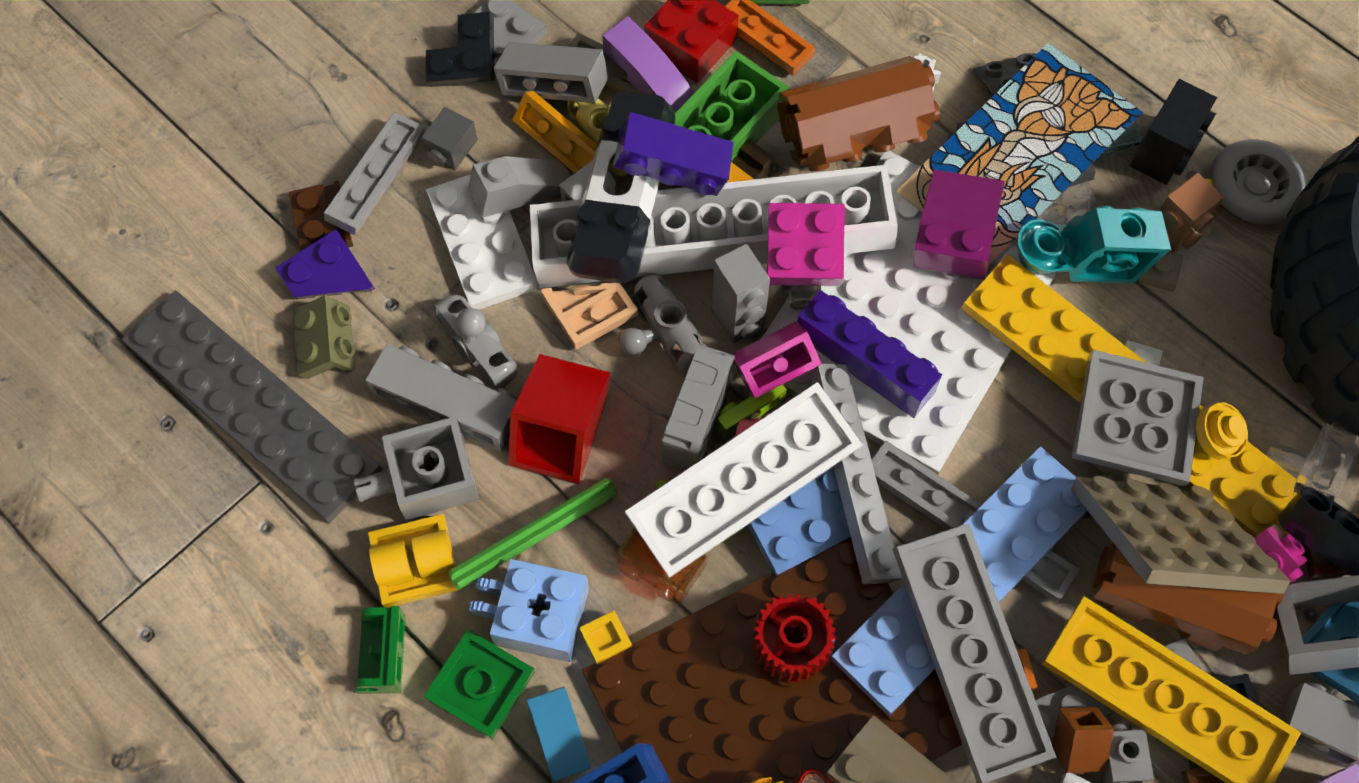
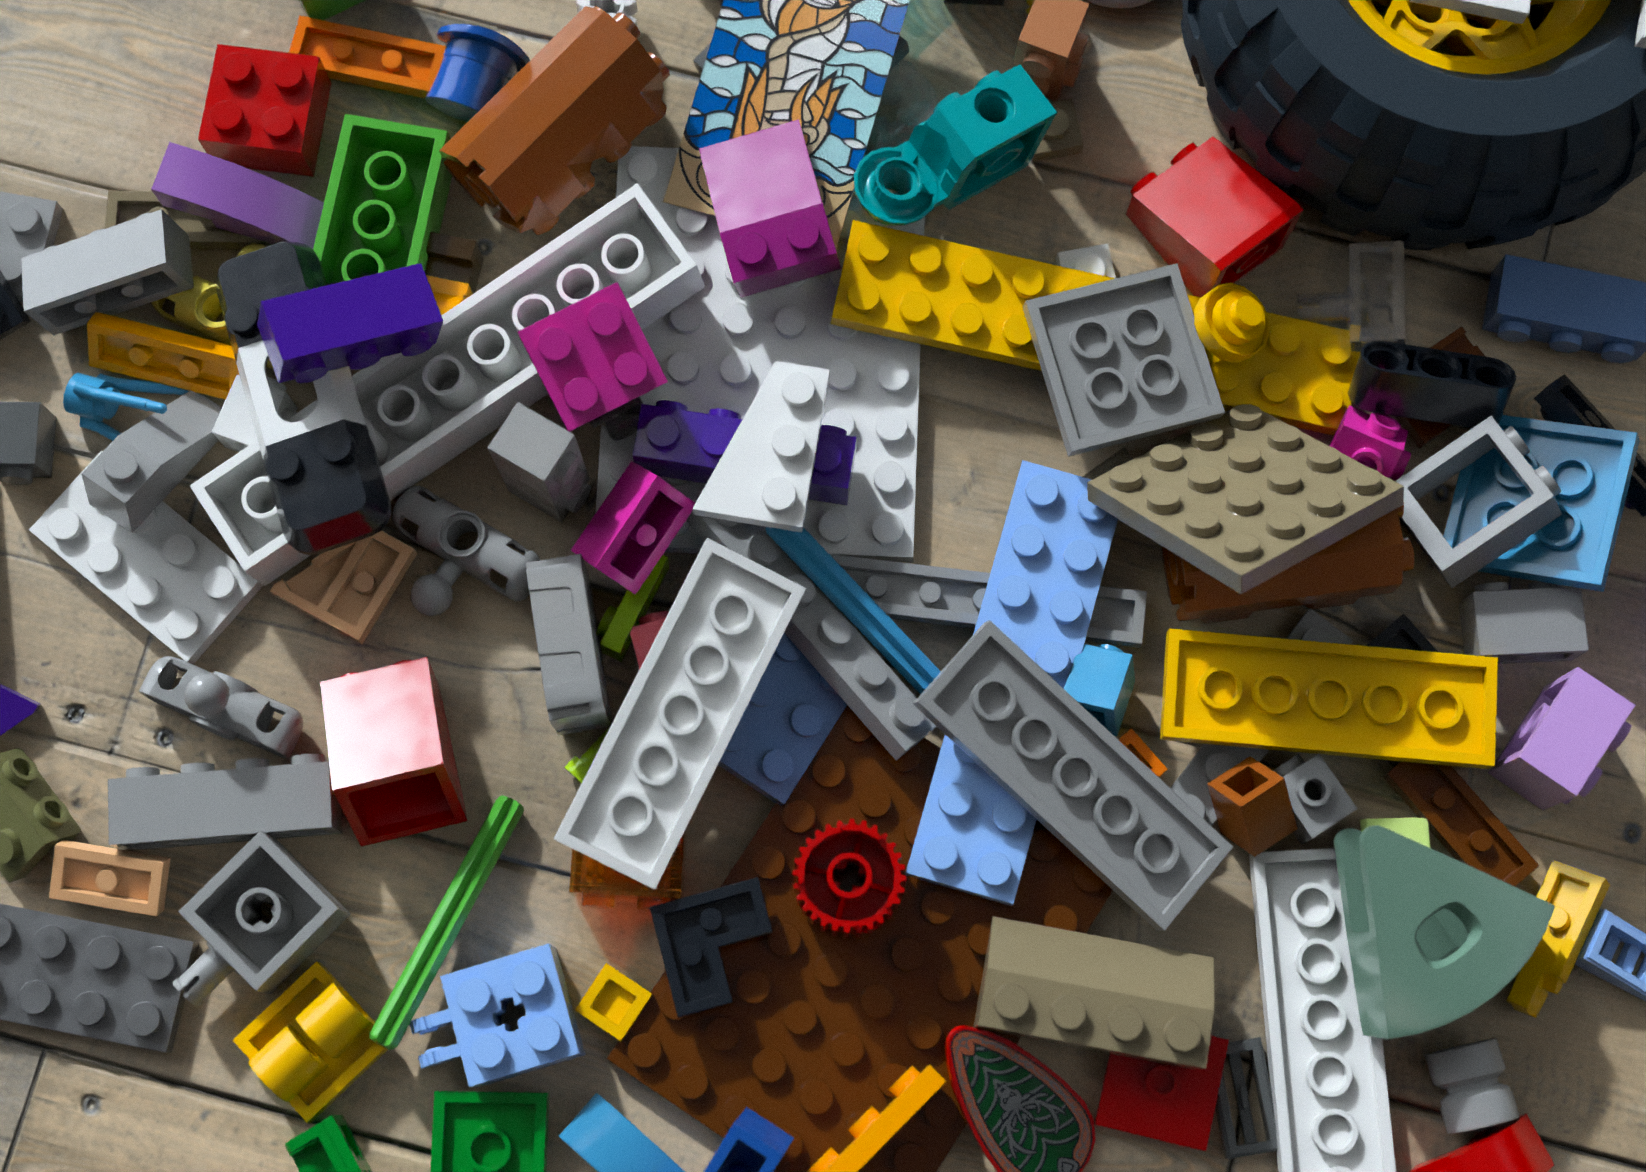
camera: 30 degrees left, 10 degrees up
(354, 402) = (109, 877): none -> light nougat plate
(507, 139) = (100, 397): none -> dark azure plant
(682, 618) = (695, 929): none -> black plate
(825, 59) = (473, 69): none -> blue piece
(884, 355) = (772, 454): none -> white wing
(886, 470) = (857, 606): none -> dark azure axle
(1023, 608) = (1102, 683): none -> dark azure brick
(1242, 364) = (1212, 215): none -> slope

